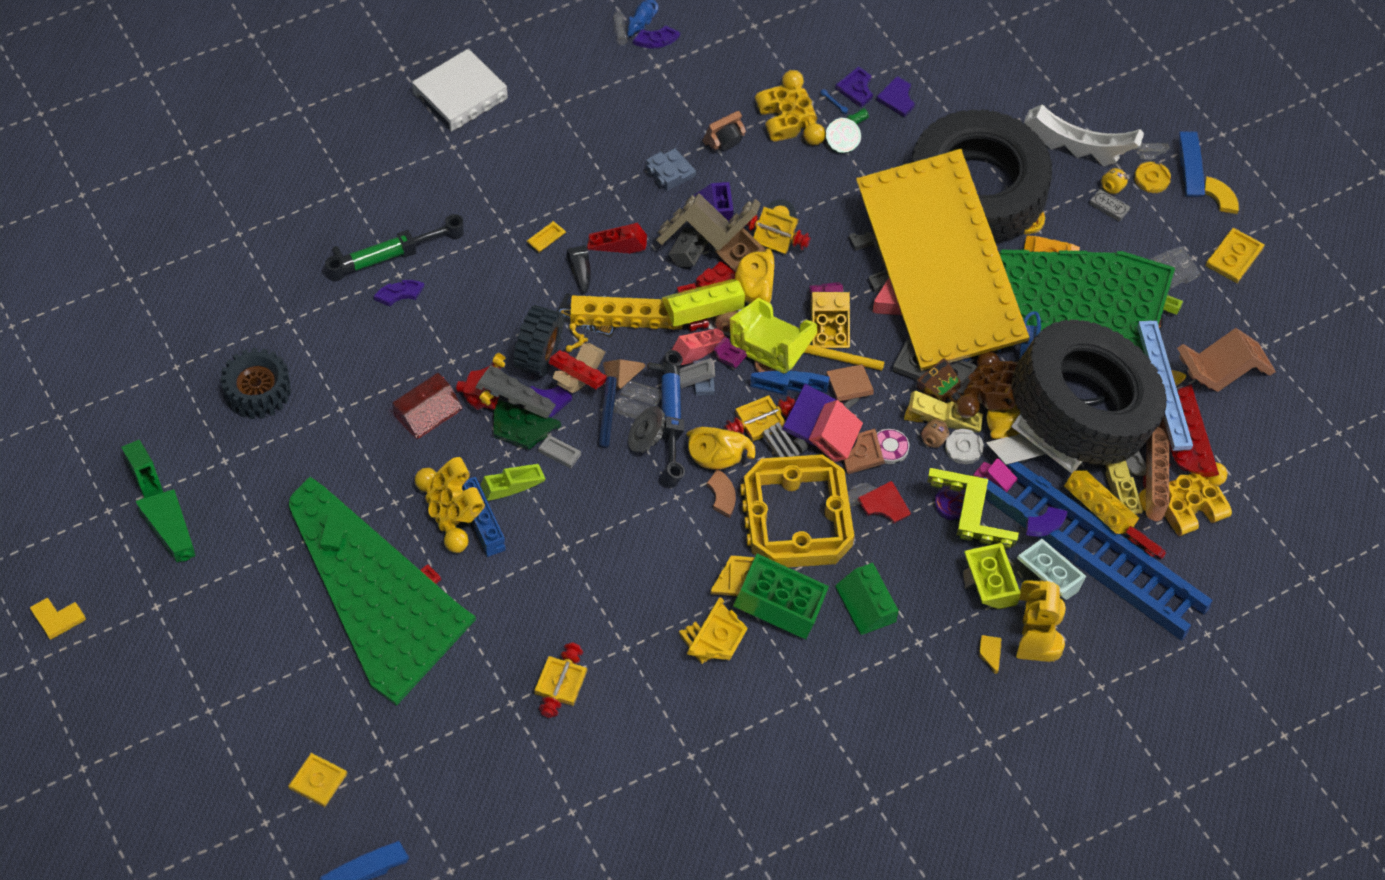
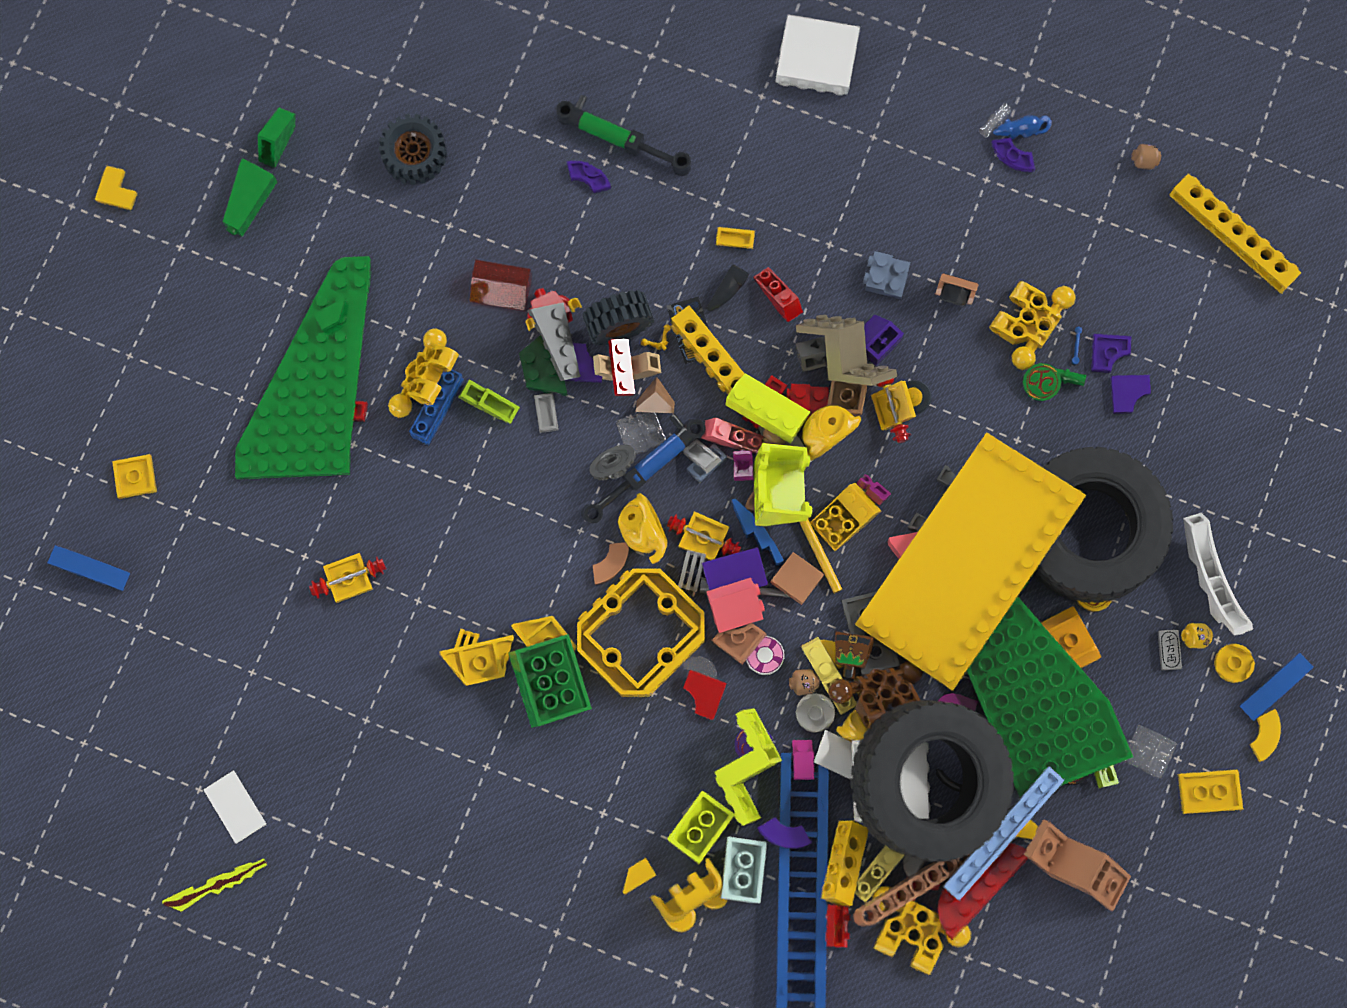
camera: 55 degrees right, 20 degrees up
(607, 412) = (607, 419): dark blue axle -> none
(867, 599) = (604, 746): green slope -> none
(1032, 331) = (966, 687): blue piece -> none
(1150, 150) = (1260, 643): clear tile -> none

